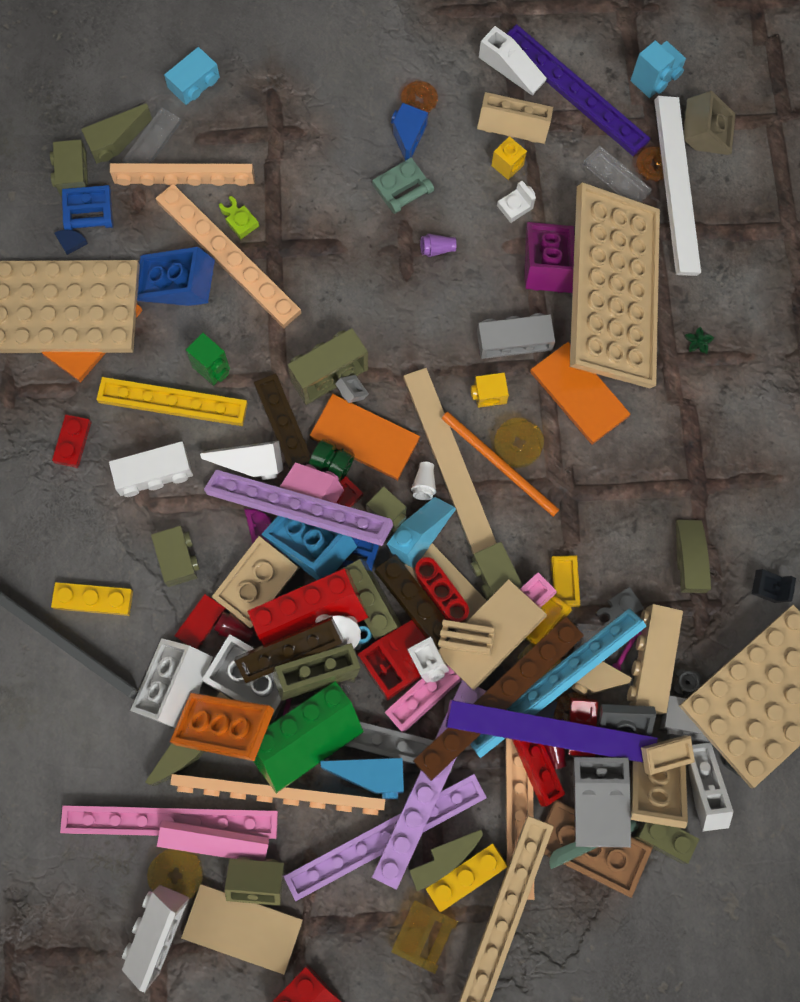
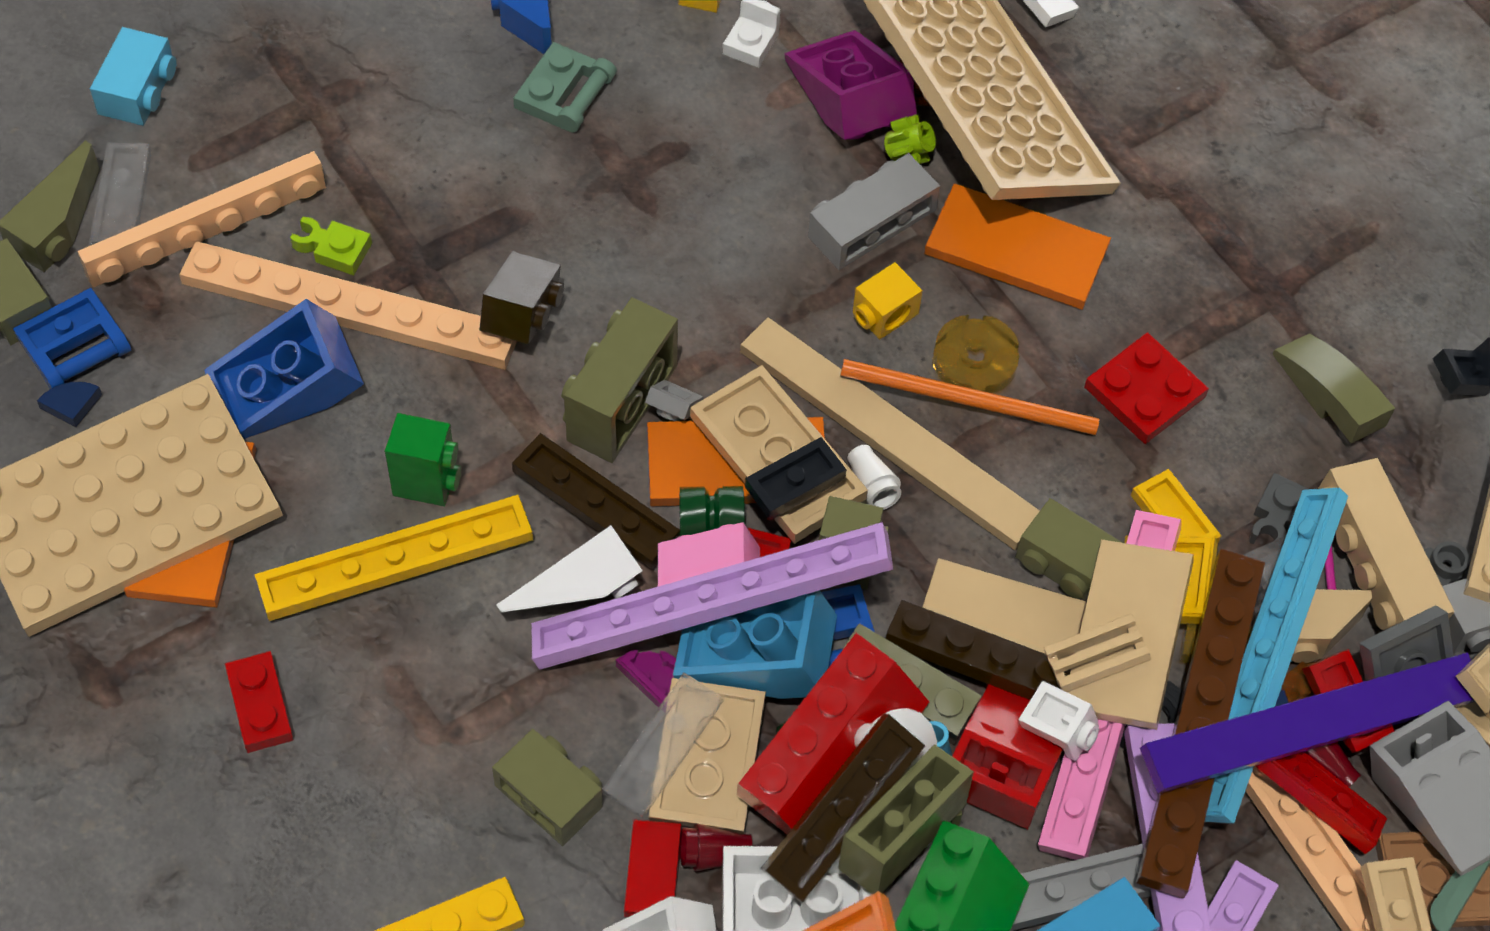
camera: 30 degrees left, 15 degrees down
(151, 469) = (424, 674): white brick -> none
(235, 567) = (663, 745): none -> clear tile
(307, 296) = (521, 297): none -> dark brown brick
(377, 466) = (795, 478): none -> black plate
(382, 445) = (758, 424): none -> tan plate
(419, 531) = (917, 550): medium azure slope -> none
(435, 244) = (669, 142): medium lavender cone -> none
(438, 579) = (995, 597): red beam -> none
(558, 306) = (910, 137): none -> lime gear
(595, 505) = (1146, 388): none -> red plate
(699, 341) = (1137, 99): dark green plant -> none

